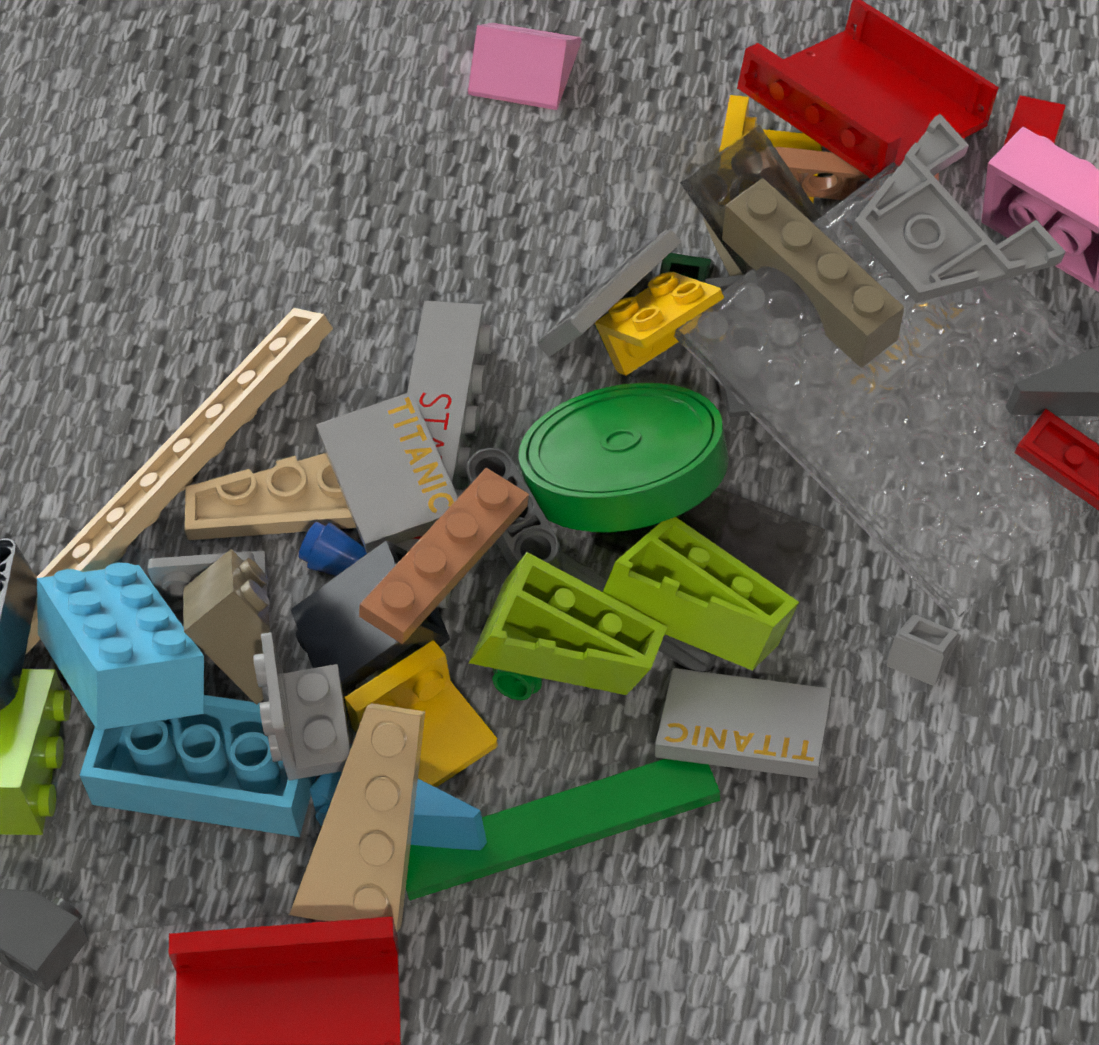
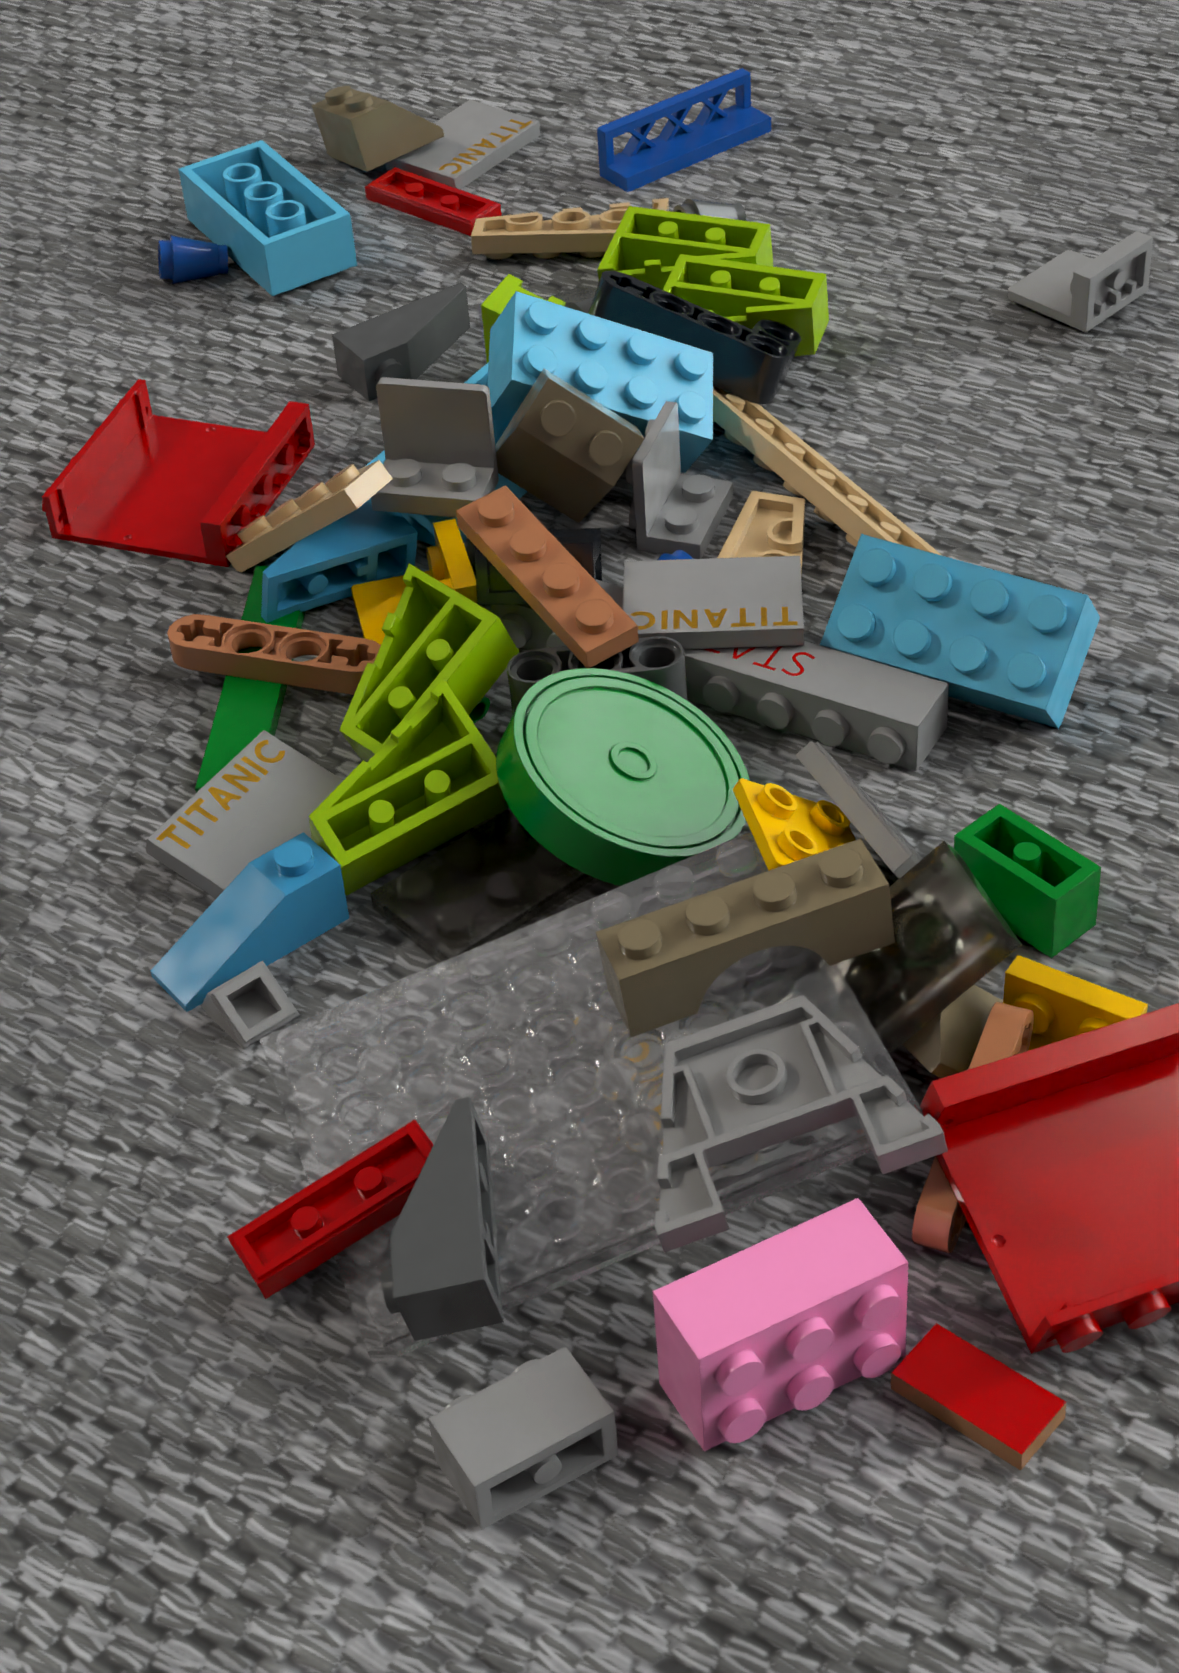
camera: 110 degrees right, 15 degrees down
(360, 307) = (967, 625): none -> medium azure brick
(540, 797) = (212, 645): none -> nougat beam
(613, 208) = (1031, 878): none -> green brick
(859, 670) = (257, 918): none -> dark azure slope

